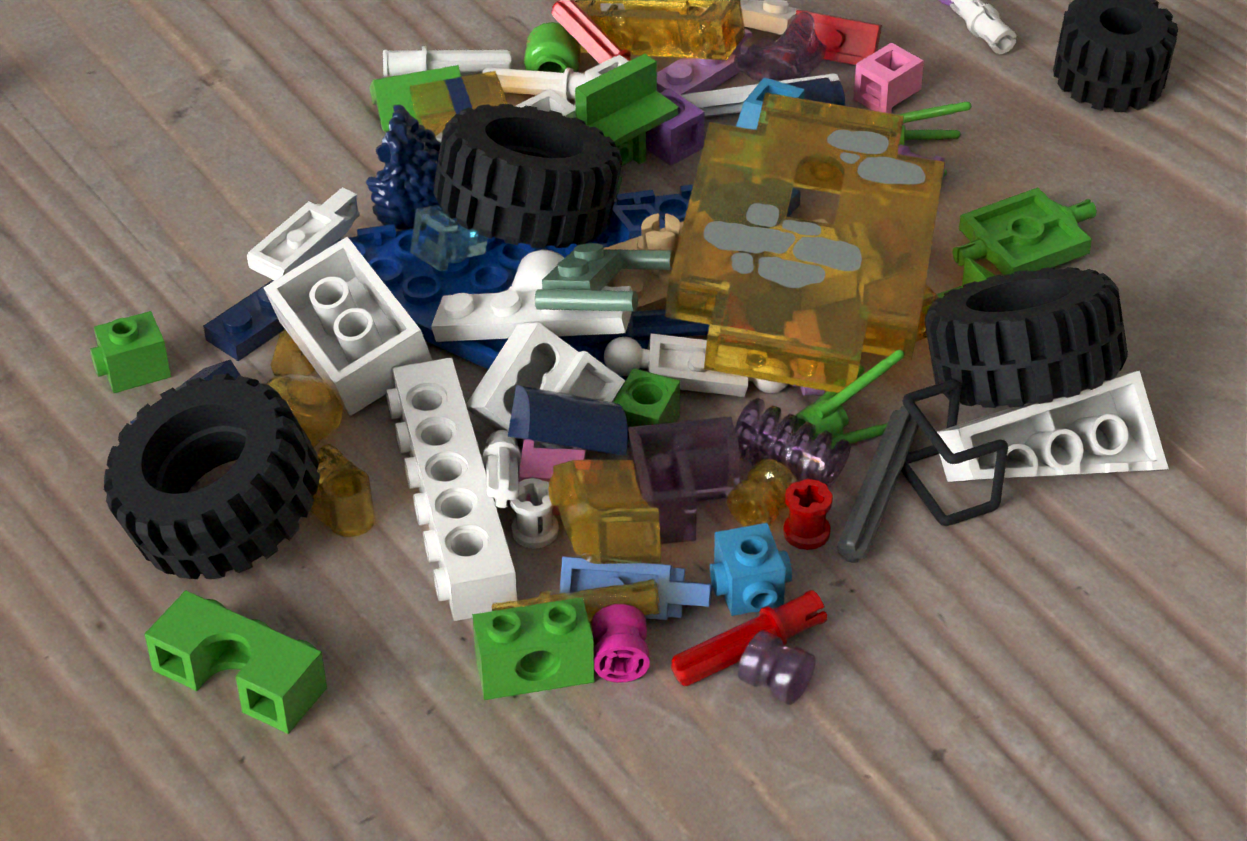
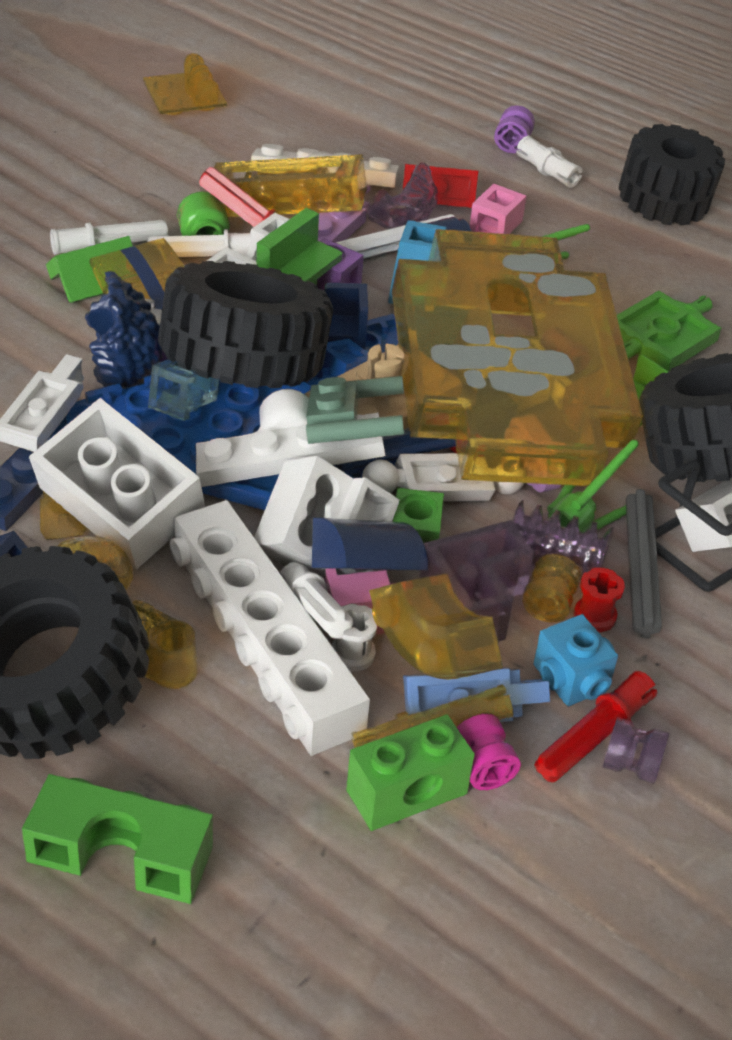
camera: 20 degrees left, 0 degrees up
(654, 176) = (349, 312): none -> dark blue panel

